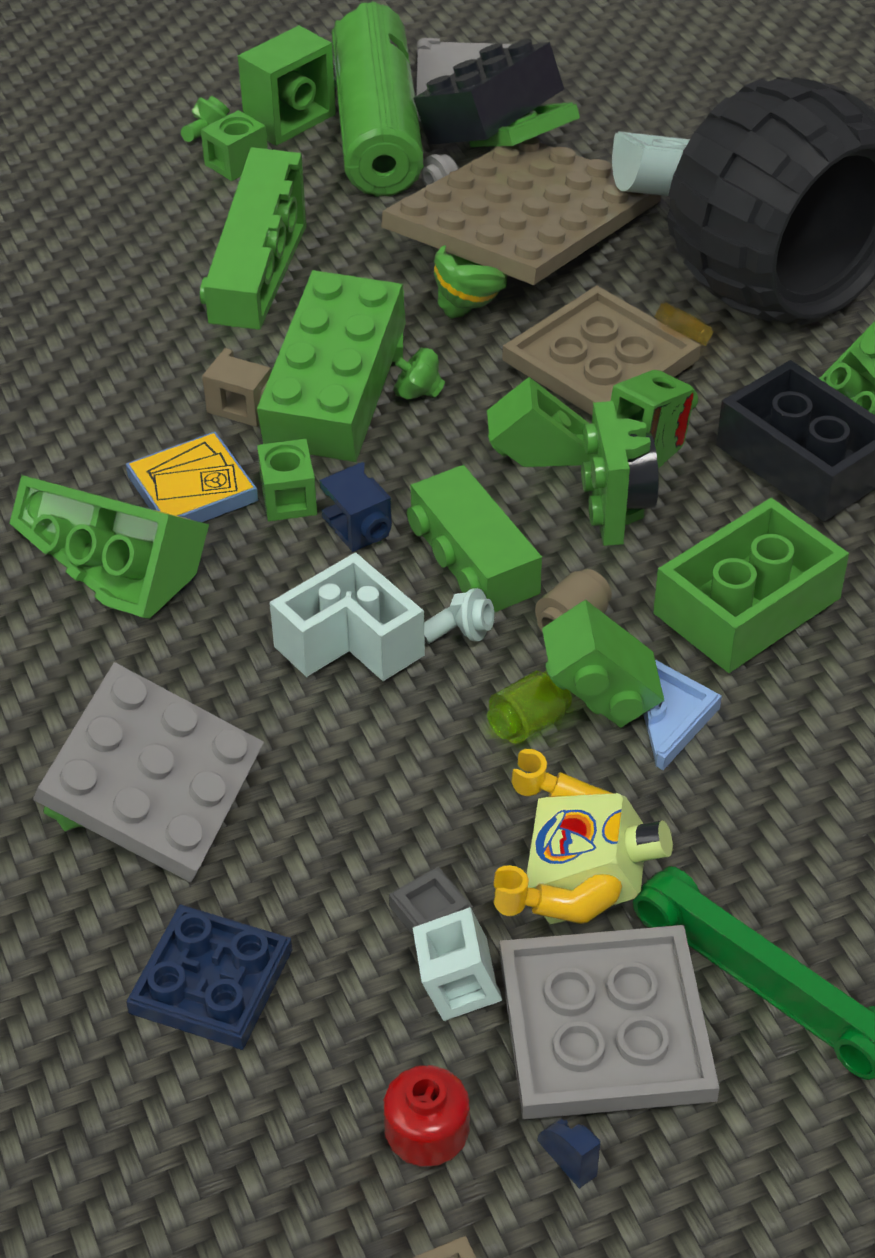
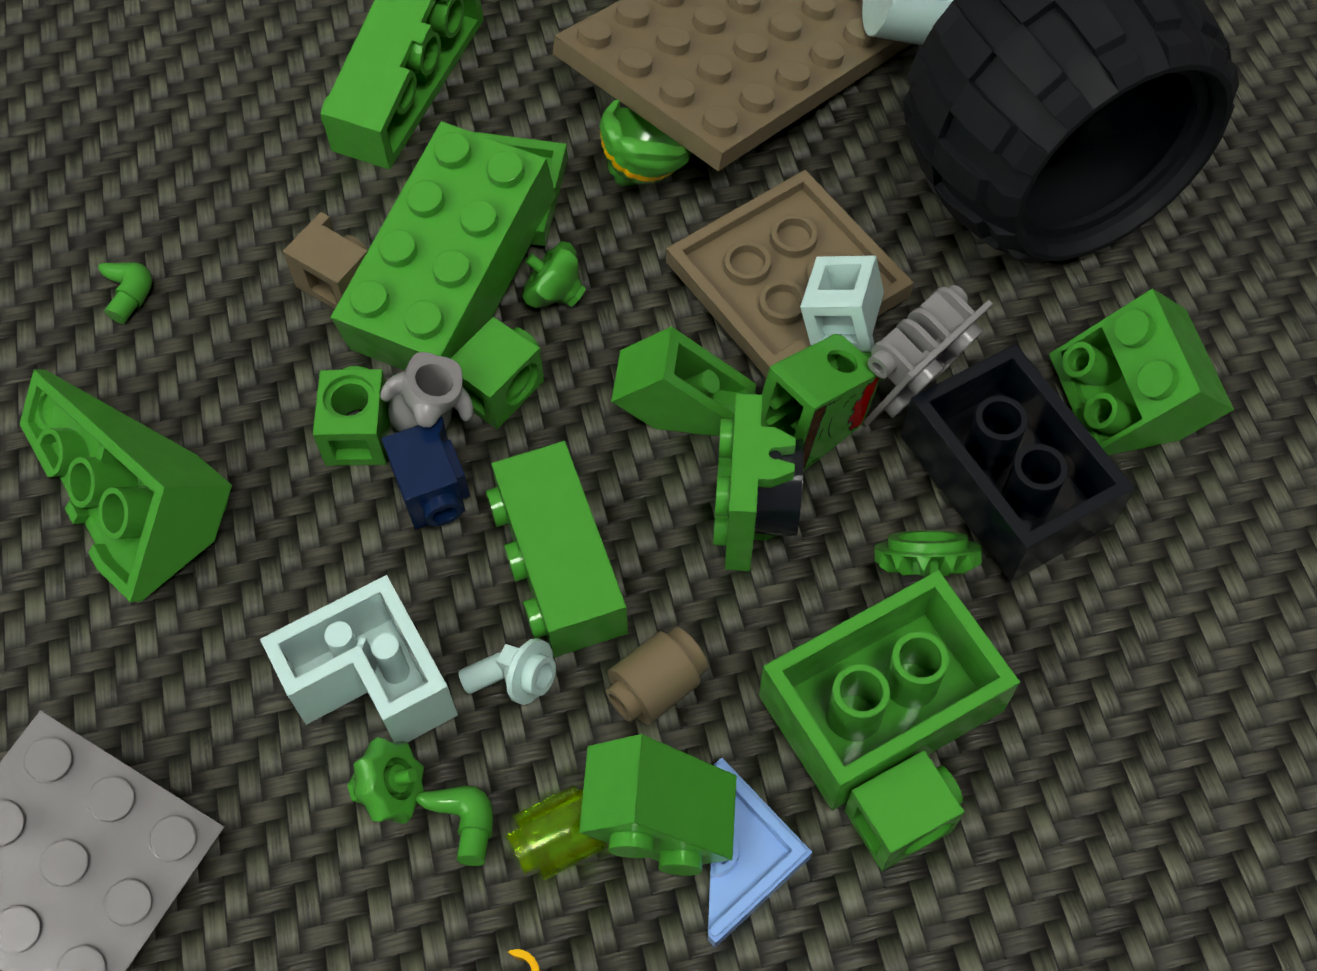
camera: 10 degrees right, 15 degrees up
(74, 423) = (133, 289): none -> bright green animal
(193, 479) = (244, 396): yellow tile -> none
(346, 445) = (426, 392): none -> light grey animal
(384, 695) = (387, 781): none -> bright green piece
(391, 438) = (499, 370): none -> bright green brick
(454, 709) = (475, 818): none -> bright green animal
(653, 347) = (843, 299): none -> light aqua brick
(684, 323) = (900, 245): clear yellow tile -> none
(720, 372) = (924, 346): none -> light grey hinge
(747, 498) = (928, 551): none -> bright green gear
(782, 658) = (905, 809): none -> bright green brick

